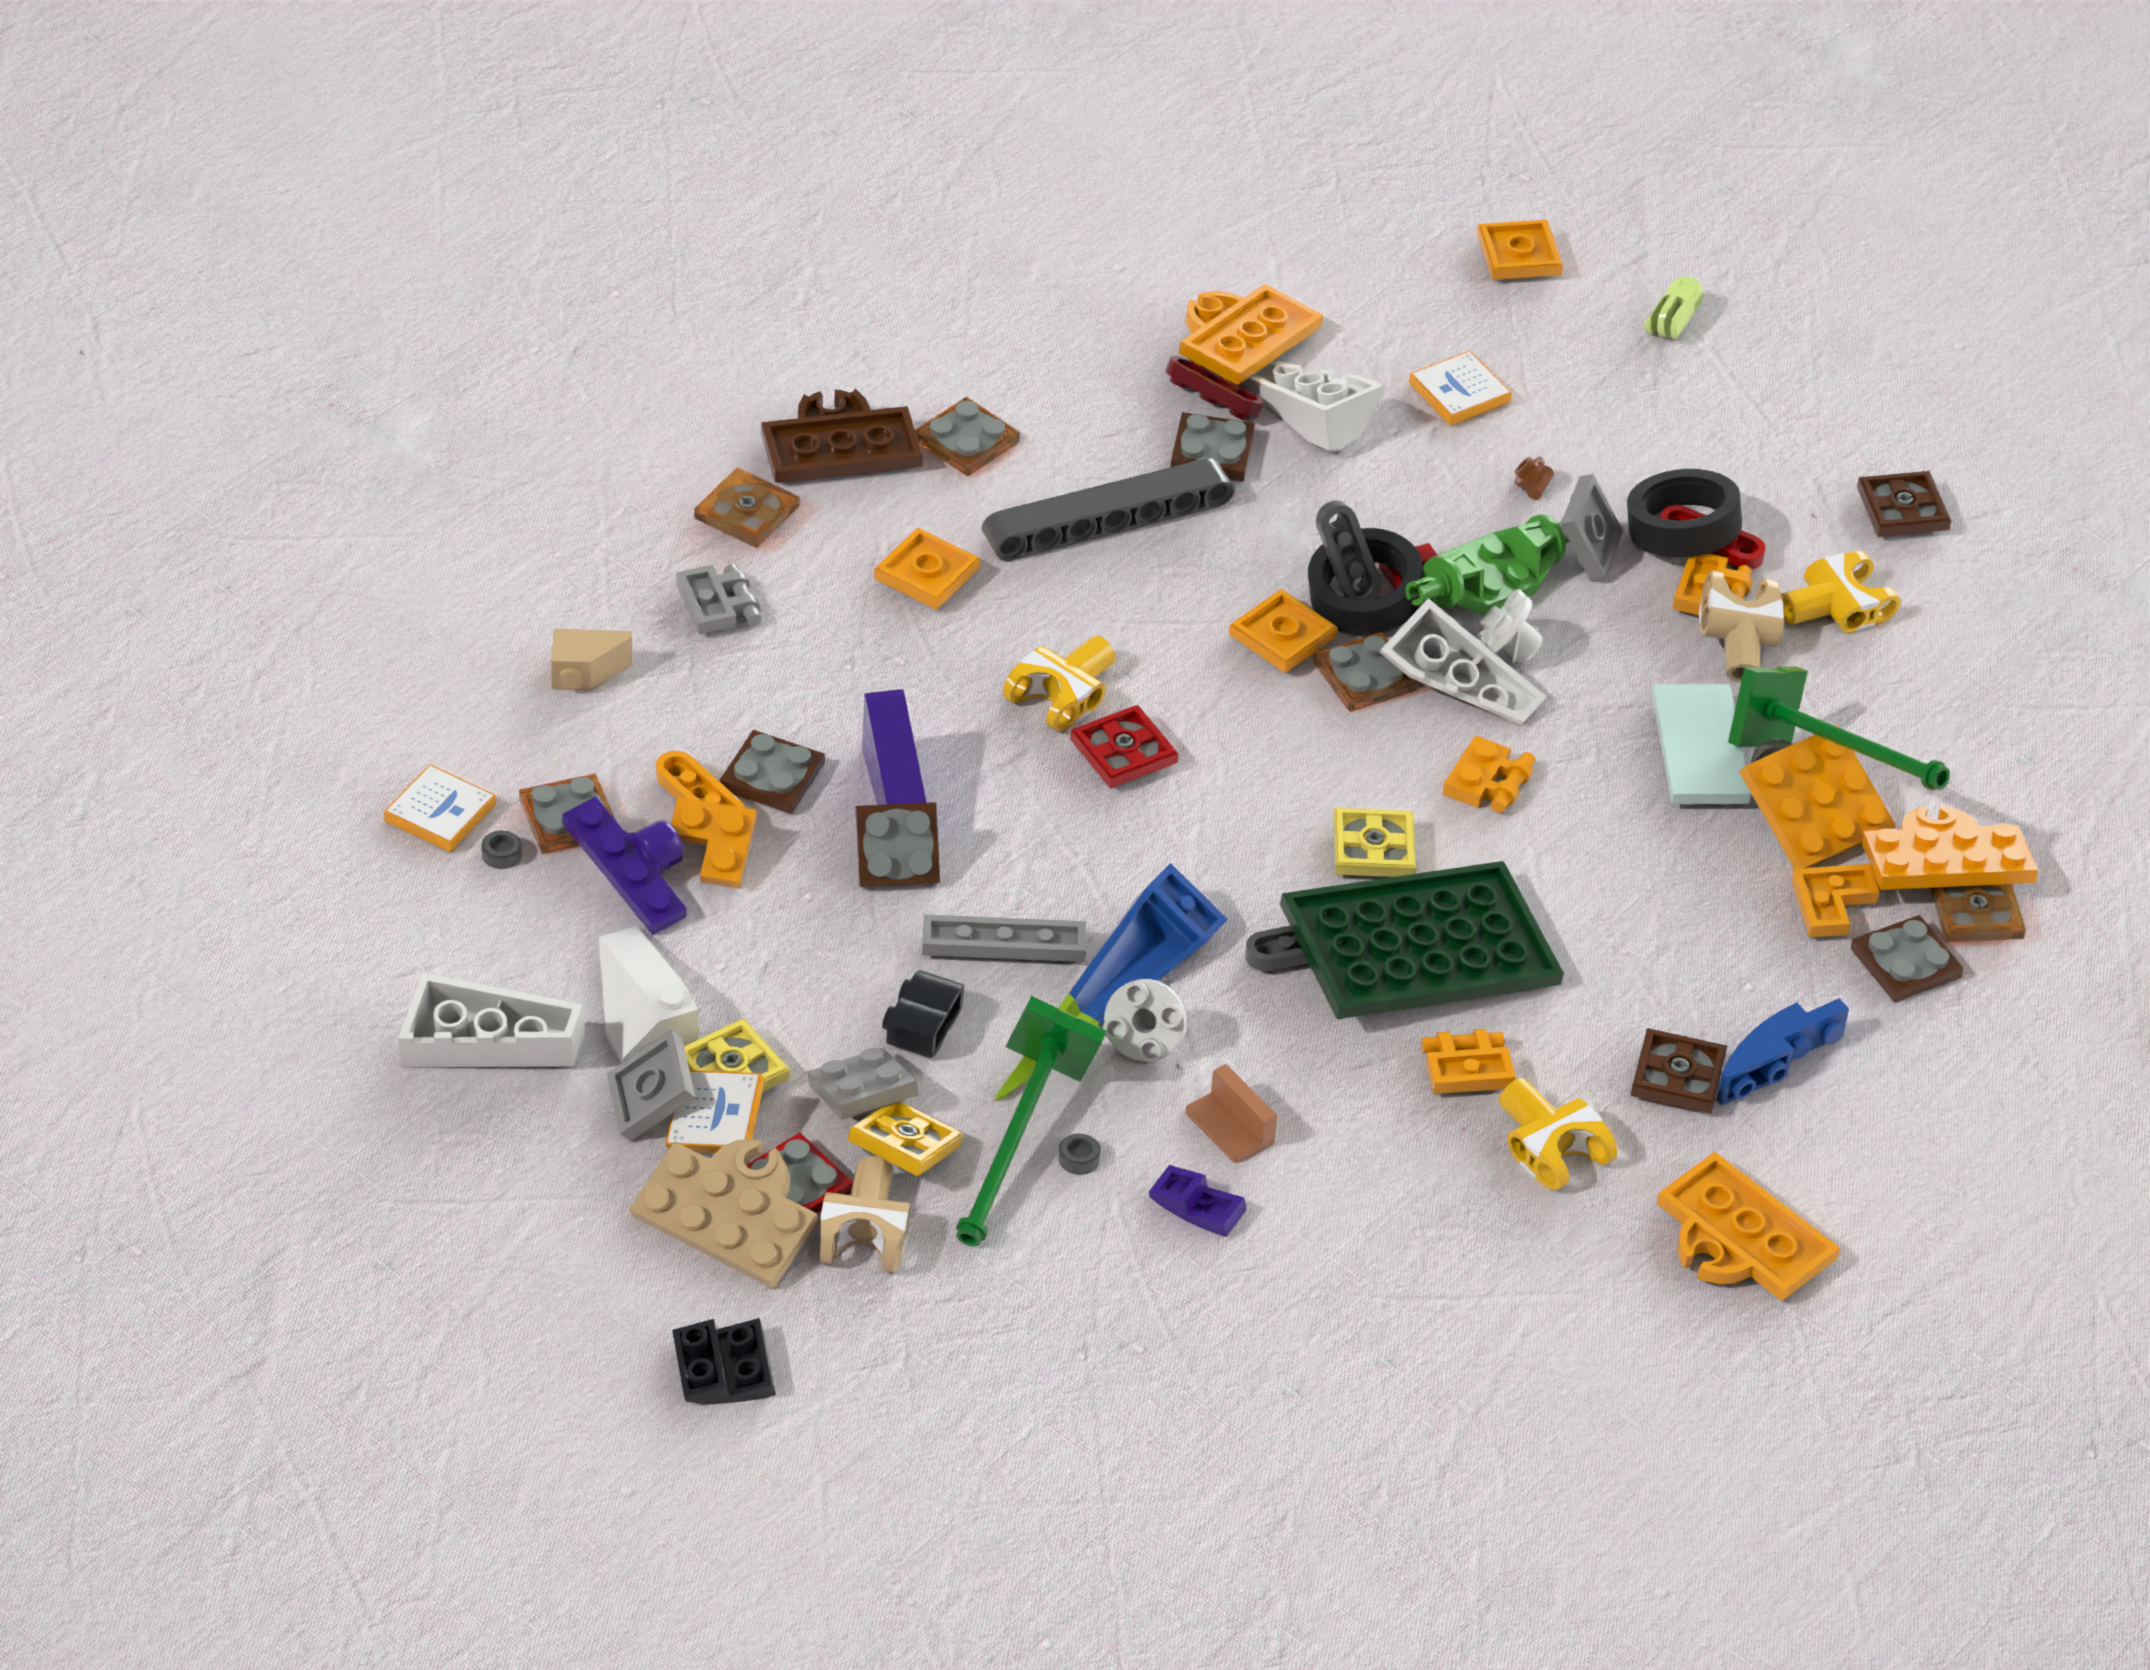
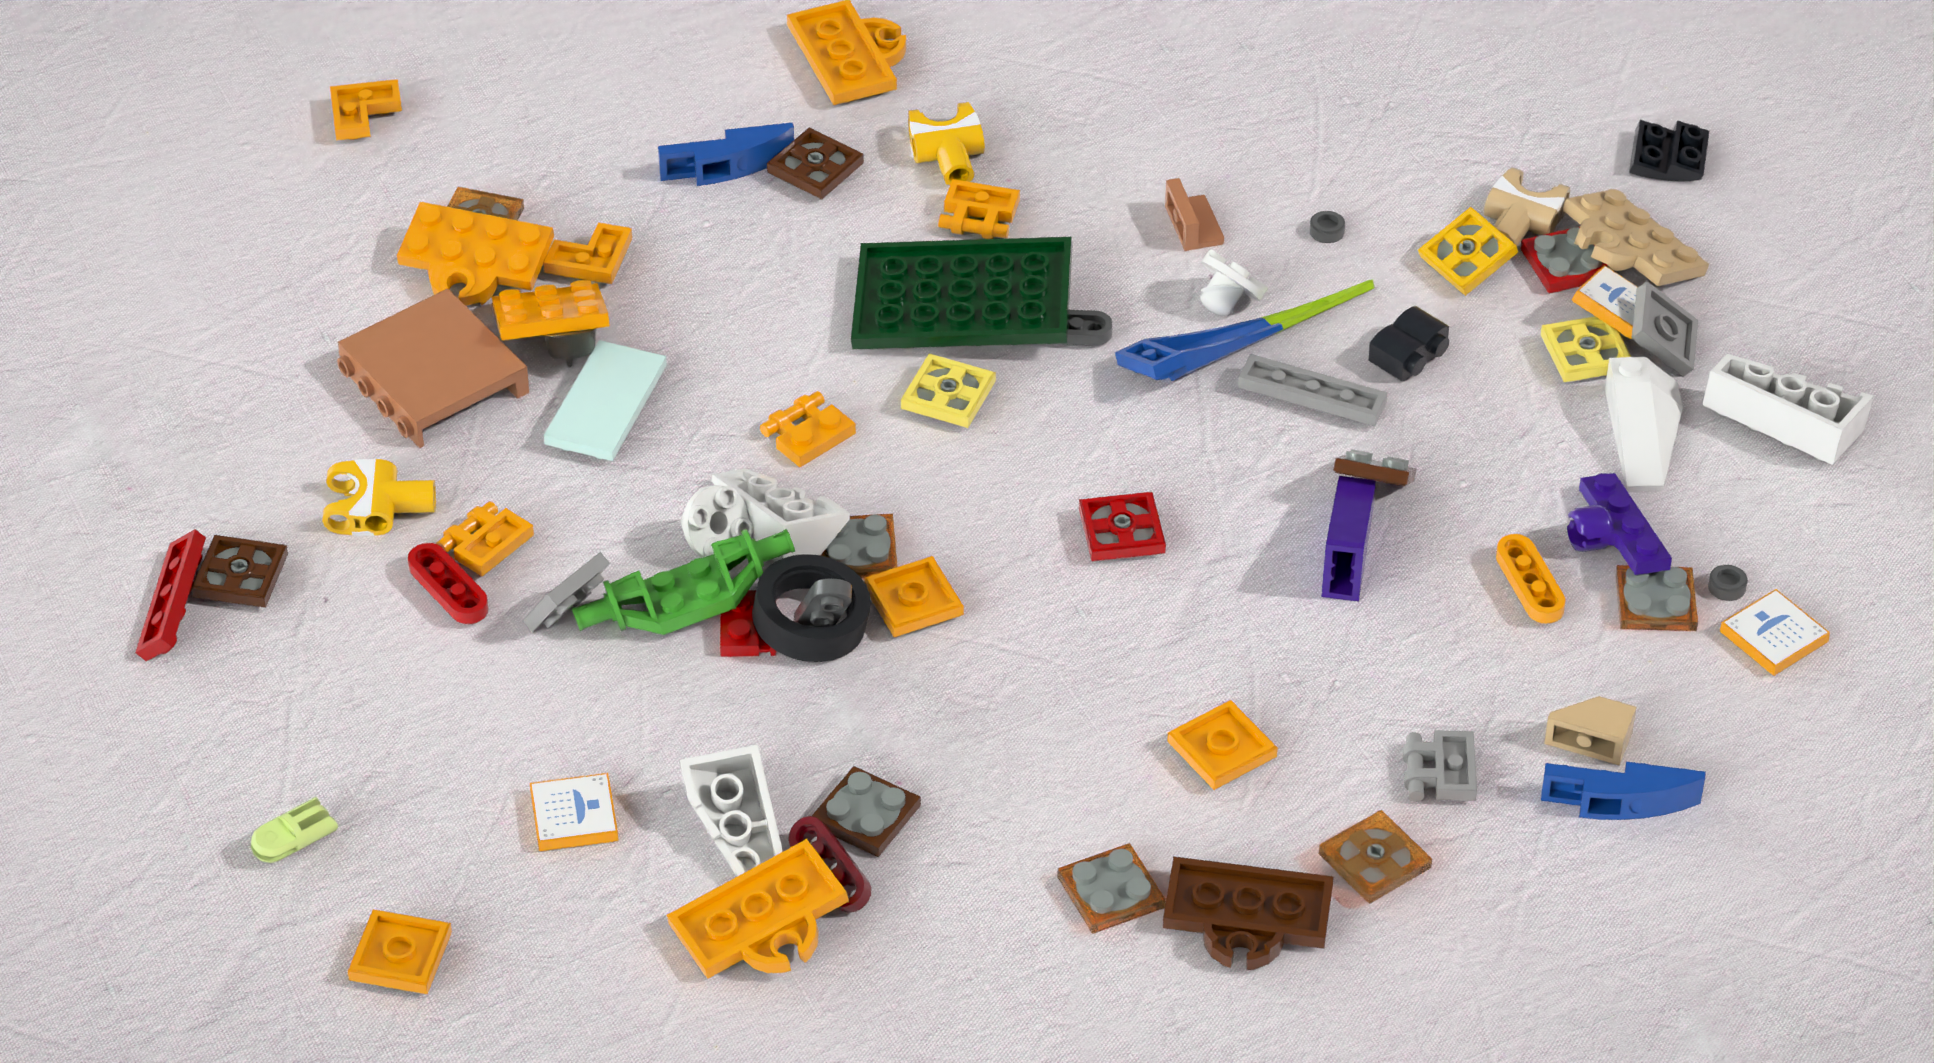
camera: 155 degrees left, 0 degrees up
(530, 608) = (1635, 794): none -> blue slope
(724, 830) = (1533, 522): light orange plate -> none
(772, 771) = (1454, 590): piece -> none
(862, 1082) = (1485, 301): light grey plate -> none
(1055, 1043) = (1322, 260): green tile -> none
(1064, 681) = (1146, 595): yellow connector -> none
(1107, 509) = (1013, 757): dark grey beam -> none
(1191, 1199) = (1250, 171): dark purple slope -> none
(1533, 476) = (571, 692): dark orange plate -> none
(1691, 536) = (470, 550): black tyre -> none
(1741, 622) = (503, 477): tan connector -> none
(1770, 709) = (544, 367): green tile -> none
(1899, 713) = (429, 363): none -> nougat panel
(1906, 958) = (566, 202): piece -> none
(1945, 468) = (171, 595): none -> red plate

